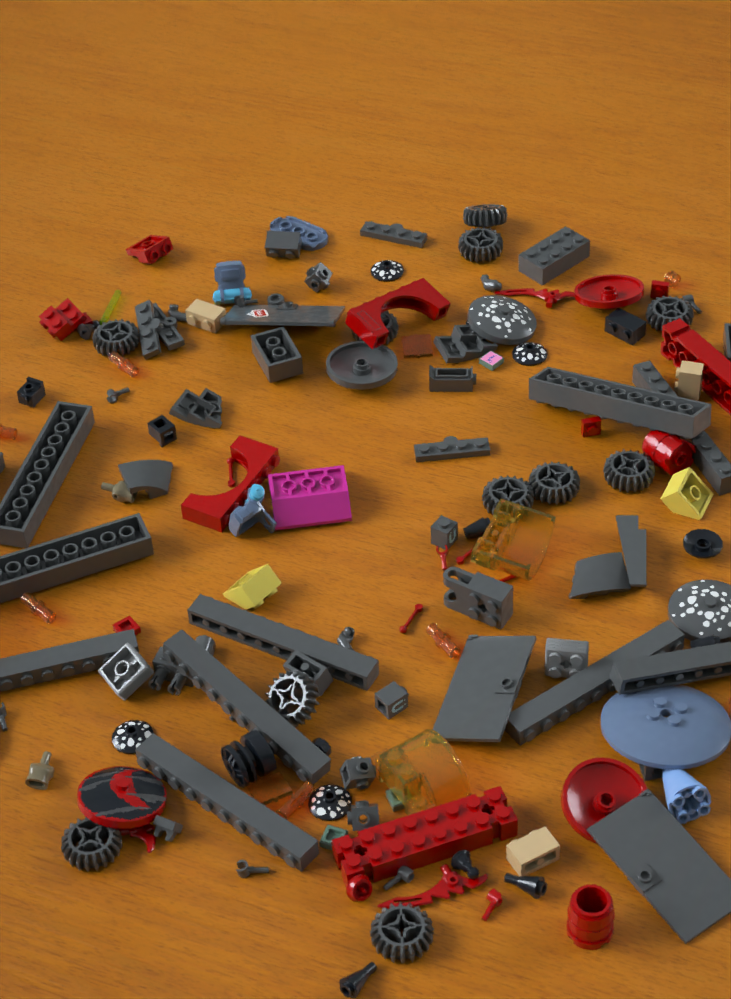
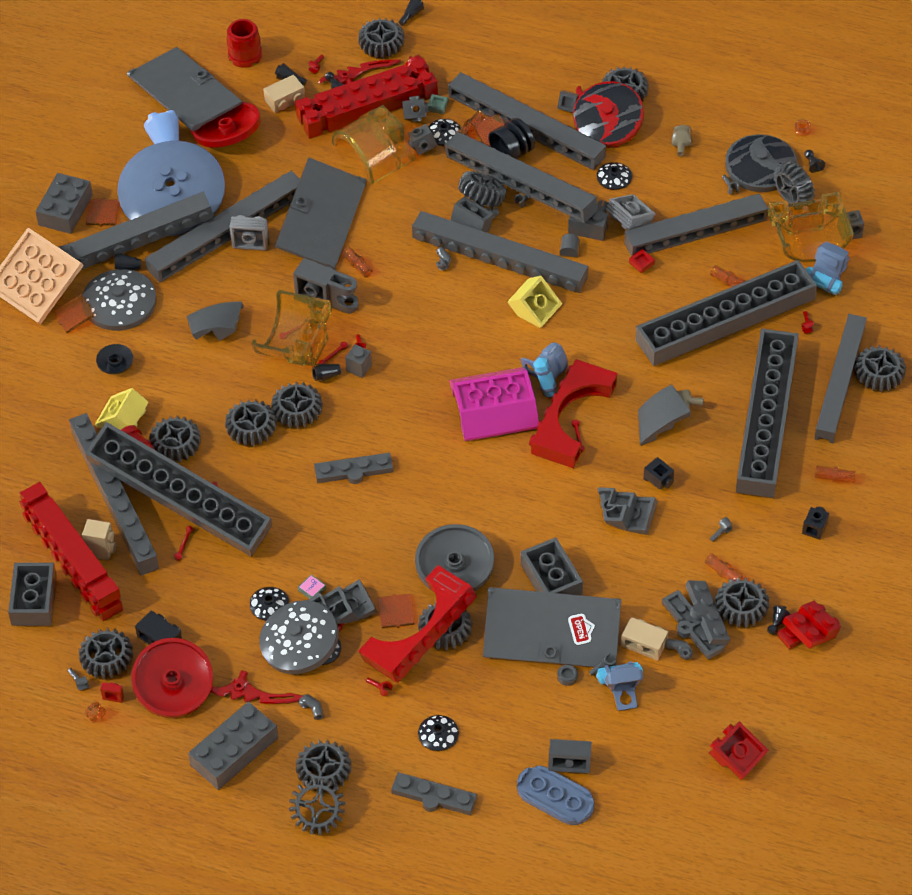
camera: 175 degrees right, 10 degrees up
(110, 307) = (763, 659): clear neon green bar -> none
(245, 870) = (503, 79): dark grey hand -> none
(318, 277) = (519, 698): dark grey brick -> none
(322, 745) = (455, 163): black tile -> none
(391, 700) = (399, 204): dark grey brick -> none
(418, 608) = (380, 296): red hinge -> none
(451, 379) = (355, 552): dark grey window -> none
(634, 548) = (179, 346): dark grey wedge -> none

